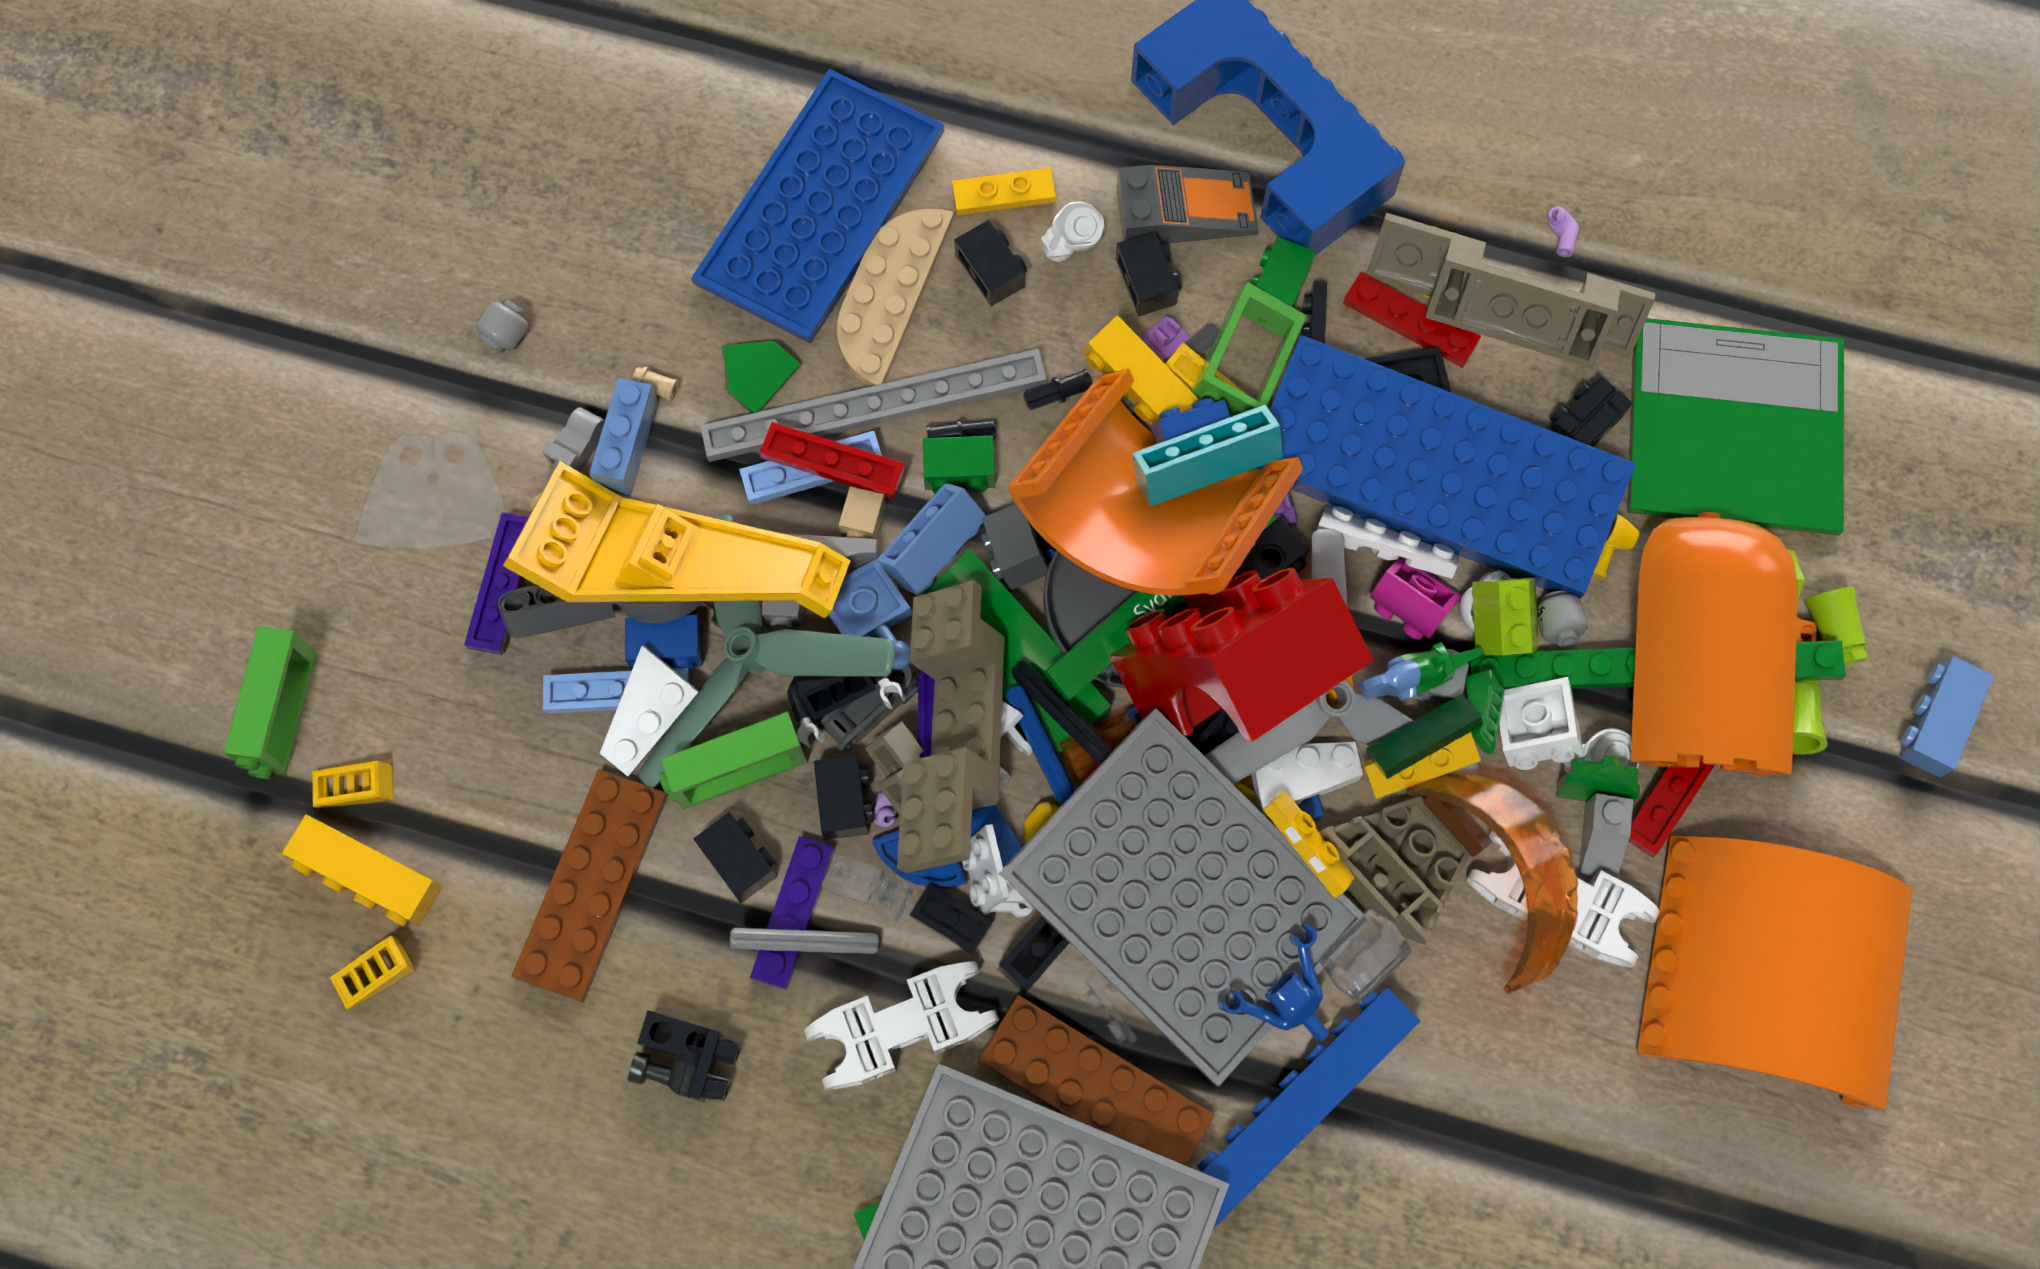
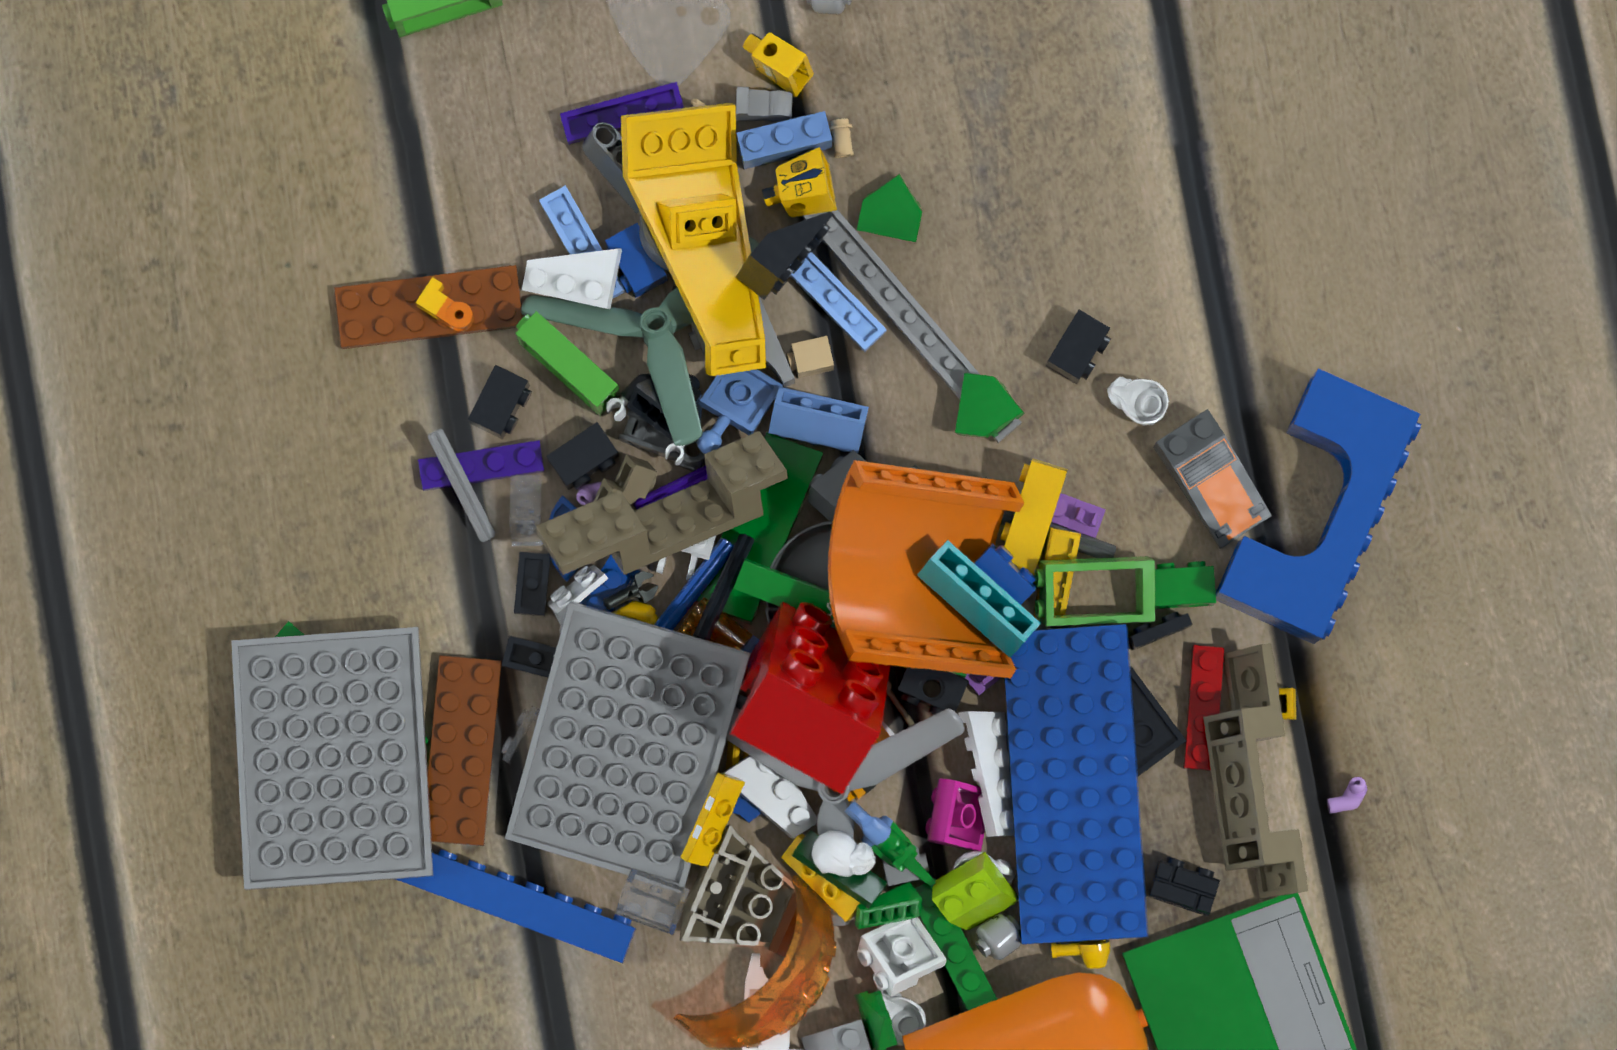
camera: 60 degrees right, 10 degrees up
(362, 871) = (355, 137): yellow brick -> none
(376, 784) = (425, 108): yellow slope -> none
(402, 968) = (308, 199): yellow slope -> none
(540, 400) = (779, 62): none -> yellow torso
(602, 863) = (453, 314): none -> leg
(682, 437) = (803, 185): none -> yellow torso
(694, 1057) = (340, 451): black hips -> none
(743, 483) = (782, 254): none -> black slope
(818, 205) = (1062, 184): blue plate -> none
(832, 460) = (841, 311): red plate -> none
(889, 290) = (1016, 278): tan plate -> none
(900, 1025) = (418, 570): white piece -> none
(959, 429) = (921, 397): black axle -> none
(959, 462) = (892, 409): green brick -> none
(1004, 191) = (1151, 325): yellow plate -> none
(1005, 371) = (985, 407): none -> green slope
(1013, 815) = (632, 590): none -> pearl dark grey bar
(1057, 390) = (997, 456): black axle -> none
(1147, 273) = (1133, 476): black brick -> none
(1290, 995) = (593, 859): blue piece -> none
(1412, 725) = (840, 855): none -> white hair

